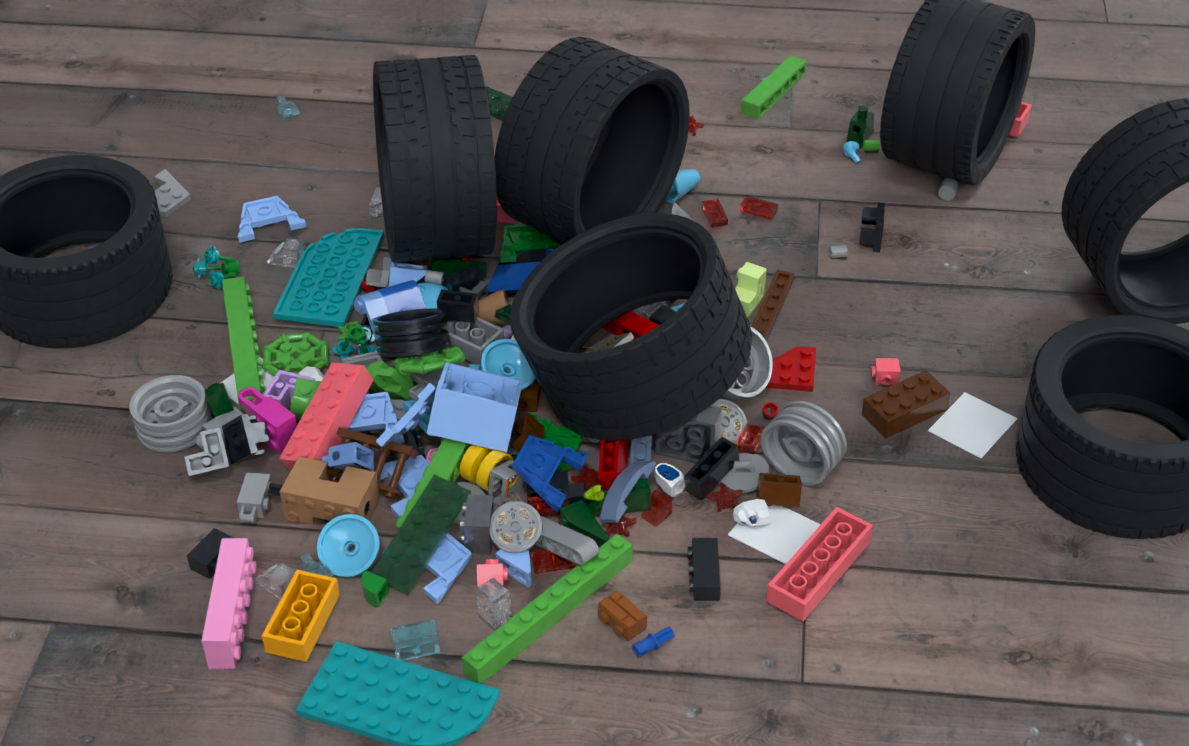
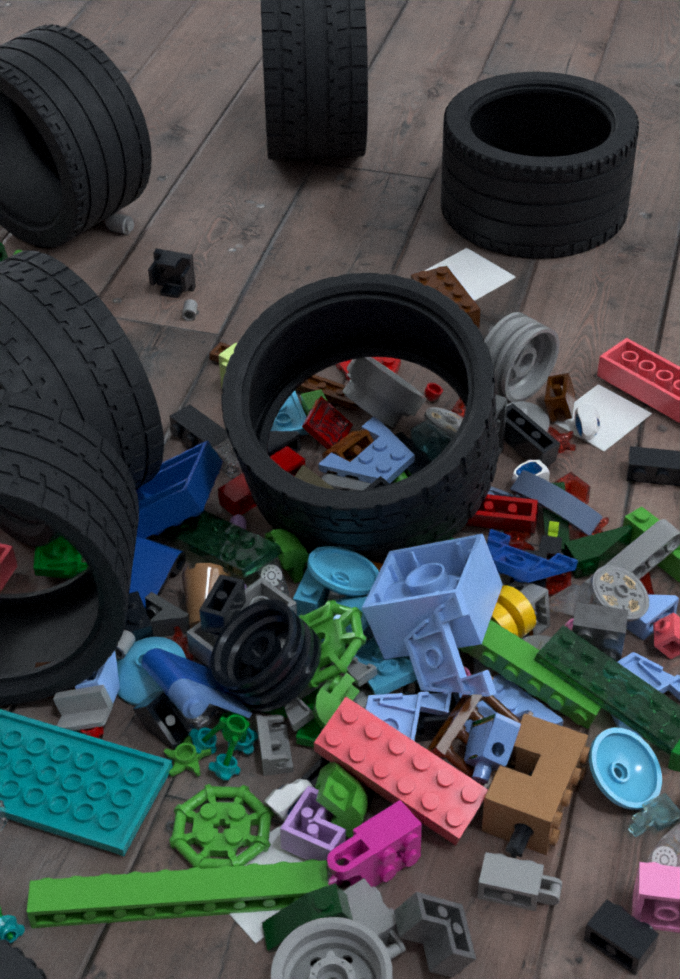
camera: 80 degrees left, 0 degrees up
(242, 438) = (415, 871): black panel -> none

